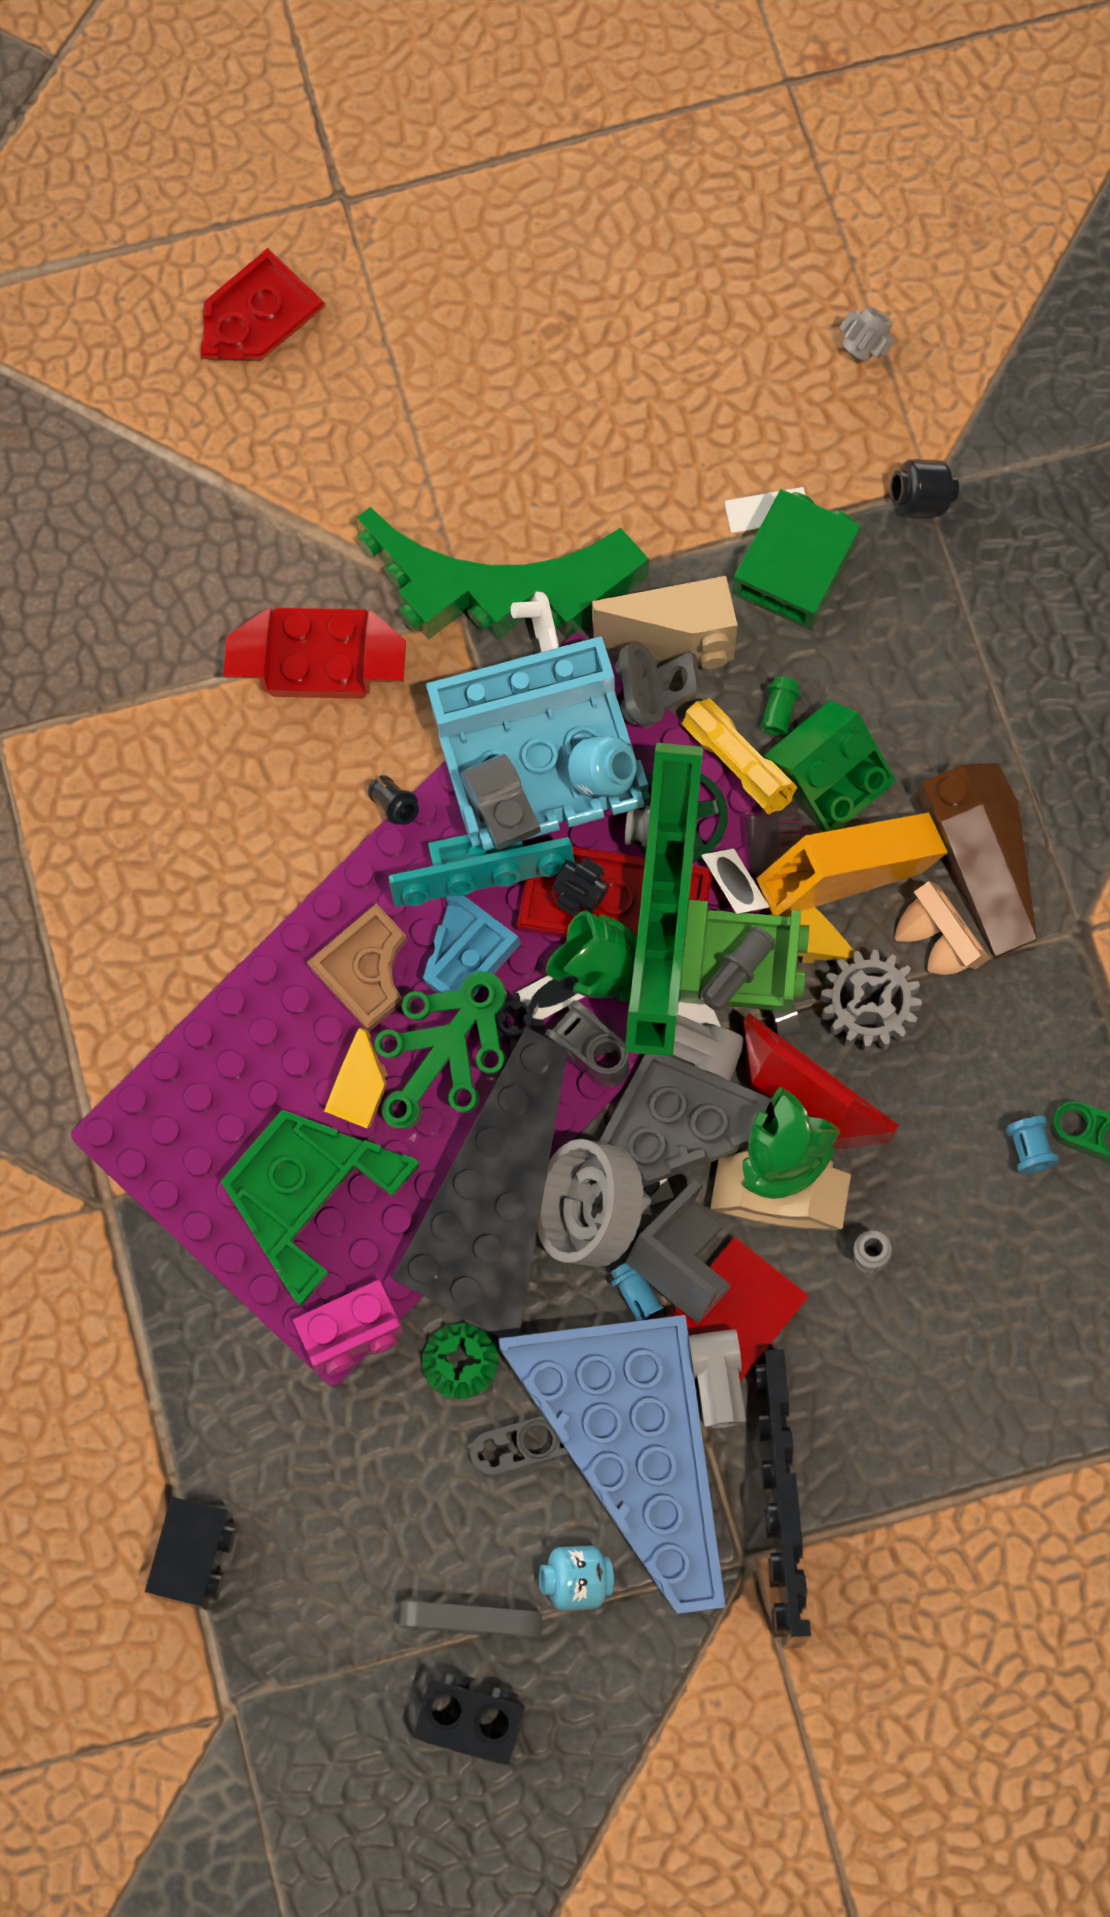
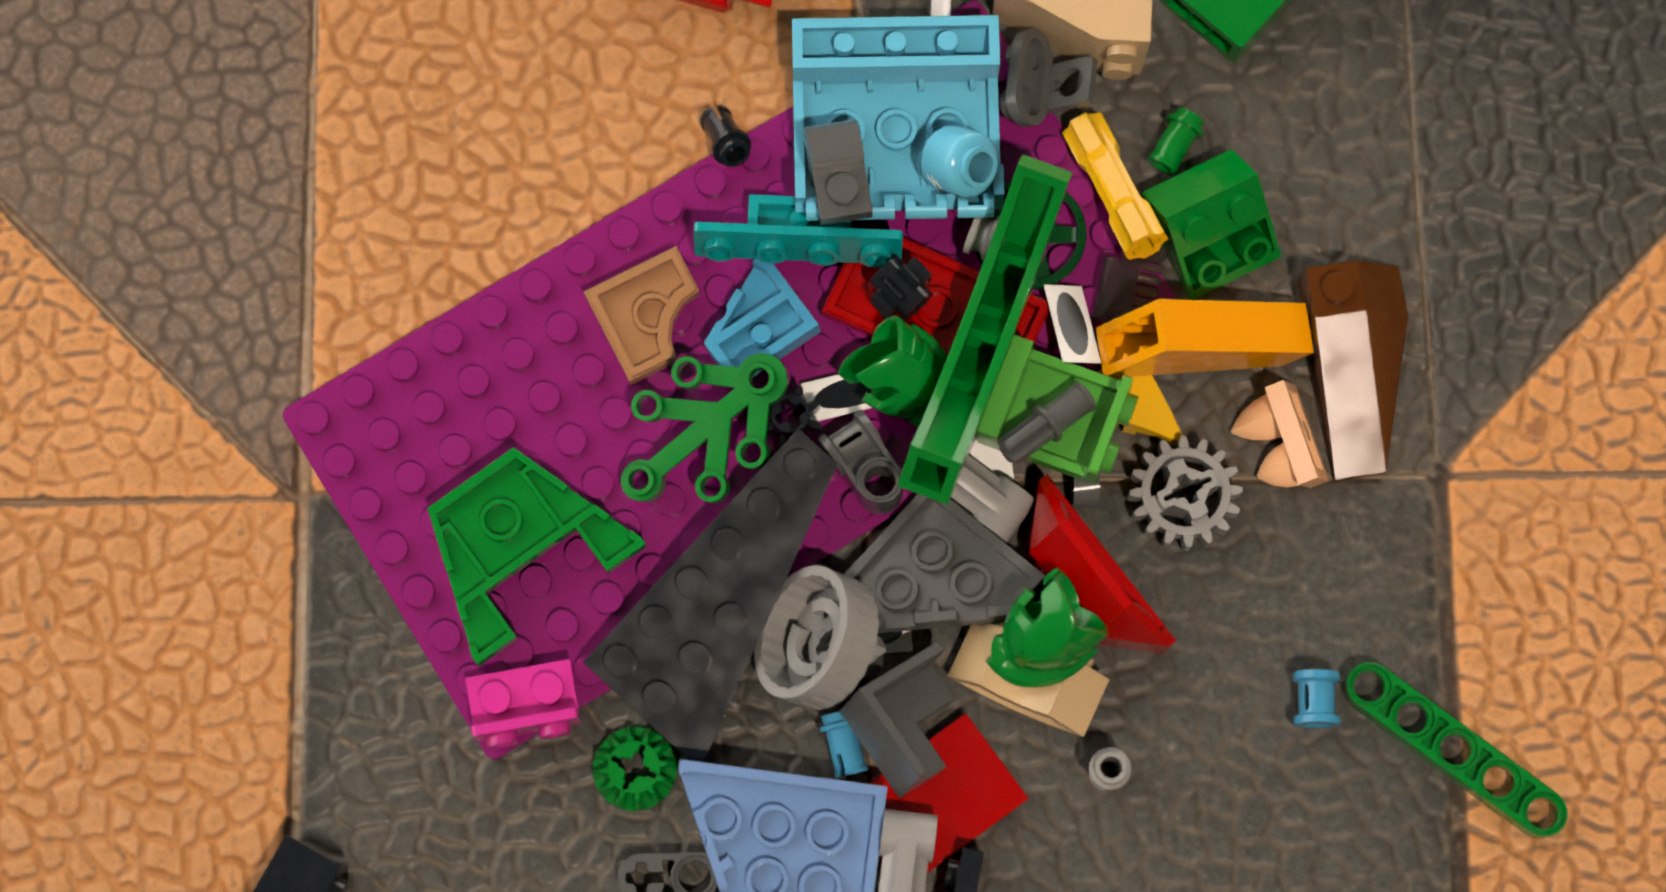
camera: 10 degrees right, 5 degrees up
(358, 1083) = (604, 439): yellow slope -> none

